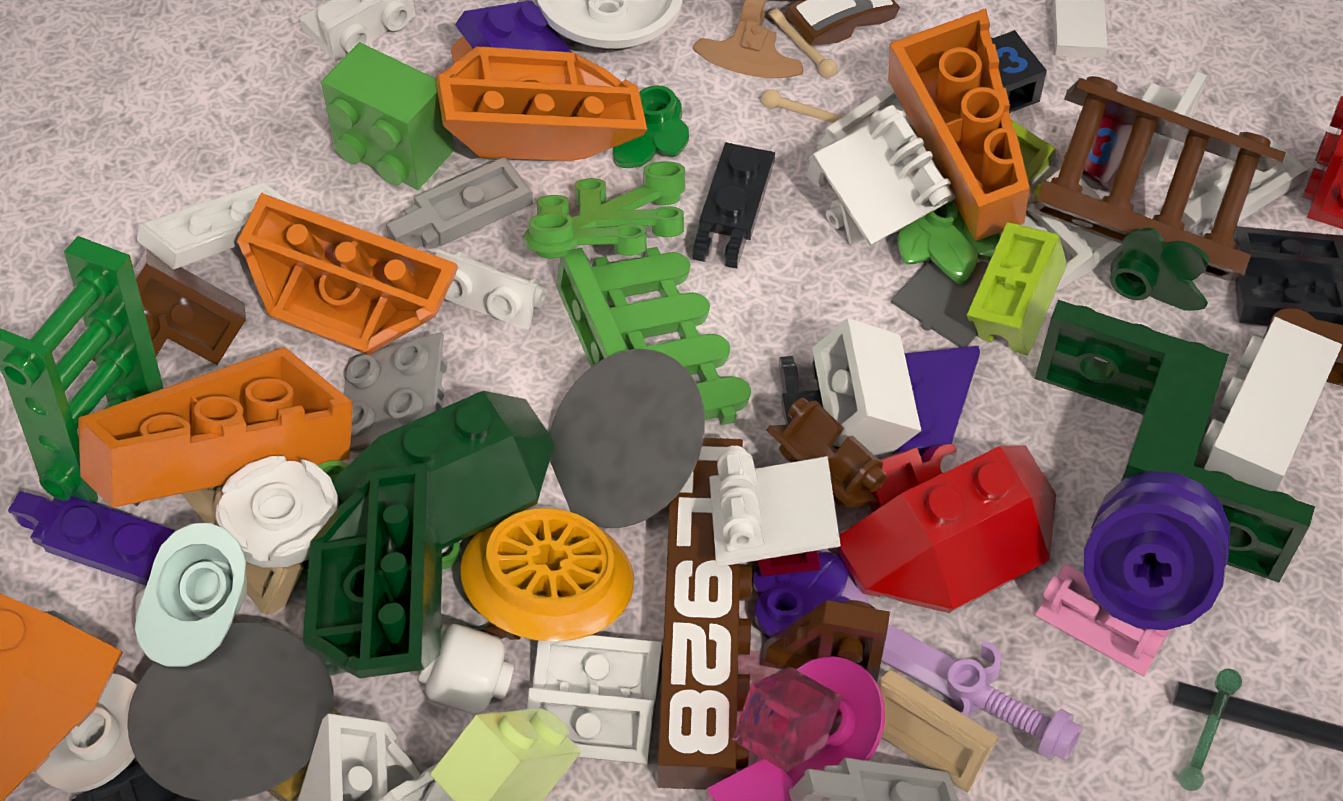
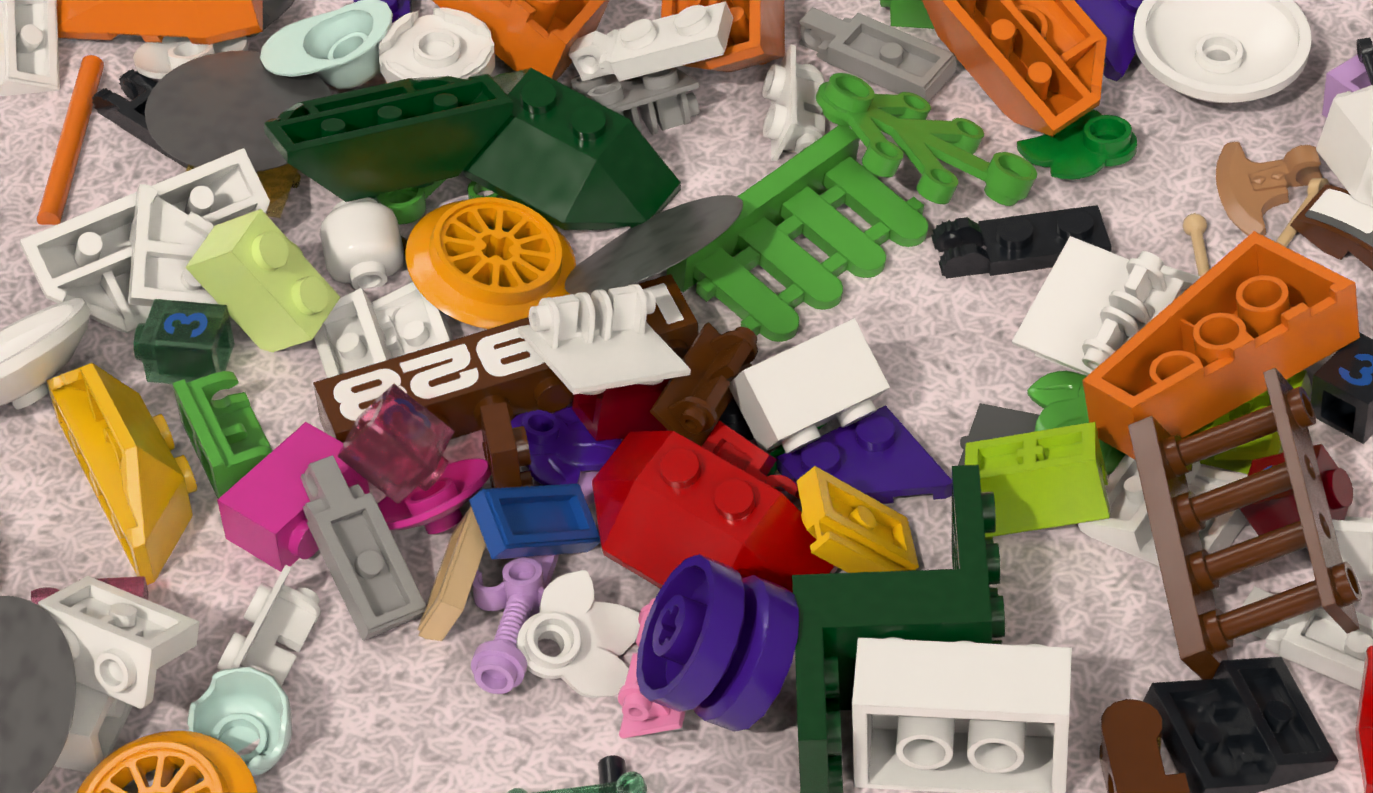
camera: 70 degrees right, 10 degrees down
(388, 336) = (654, 45): none -> white hinge
(922, 645) = (535, 521): none -> blue tile
(1031, 421) = (853, 527): none -> yellow plate
(1042, 672) = (587, 633): none -> white plate
(1159, 270) = (1139, 586): dark green plate -> none

